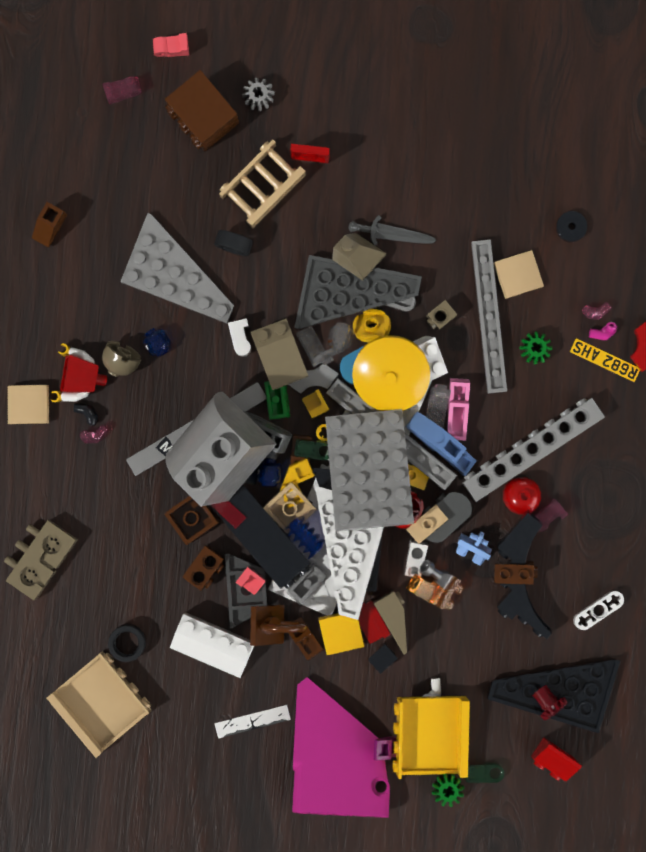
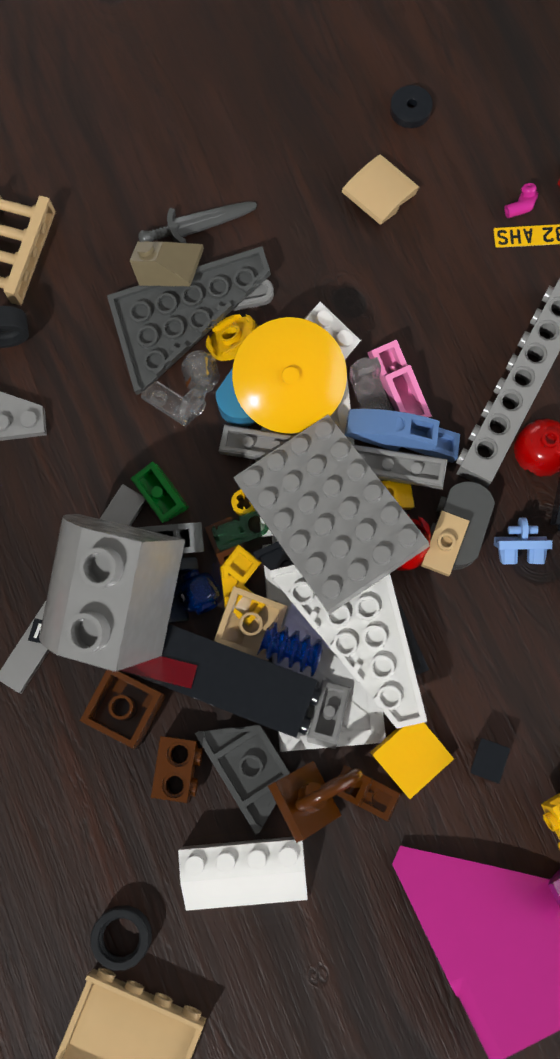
camera: 25 degrees left, 10 degrees down
(240, 343) = (75, 446): white leg -> none
(251, 580) = (249, 750): coral panel -> none
(252, 721) = (358, 954): white sticker -> none
(279, 354) = (130, 431): dark tan slope -> none
(310, 153) = (43, 174): red tile -> none
(315, 404) = (214, 472): yellow panel -> none
(321, 376) = (201, 436): light grey tile -> none
(372, 622) = (447, 719): red panel -> none
(392, 612) = (472, 692): dark tan slope -> none
(415, 557) = (455, 601): white leg -> none
(439, 590) = (511, 624): clear orange hips -> none
(449, 314) = (313, 272): dark tan brick -> none
(489, 316) = (374, 256): light grey plate -> none
(536, 341) = (446, 252): green gear -> none
(596, 313) = (501, 184): clear pink arm -> none

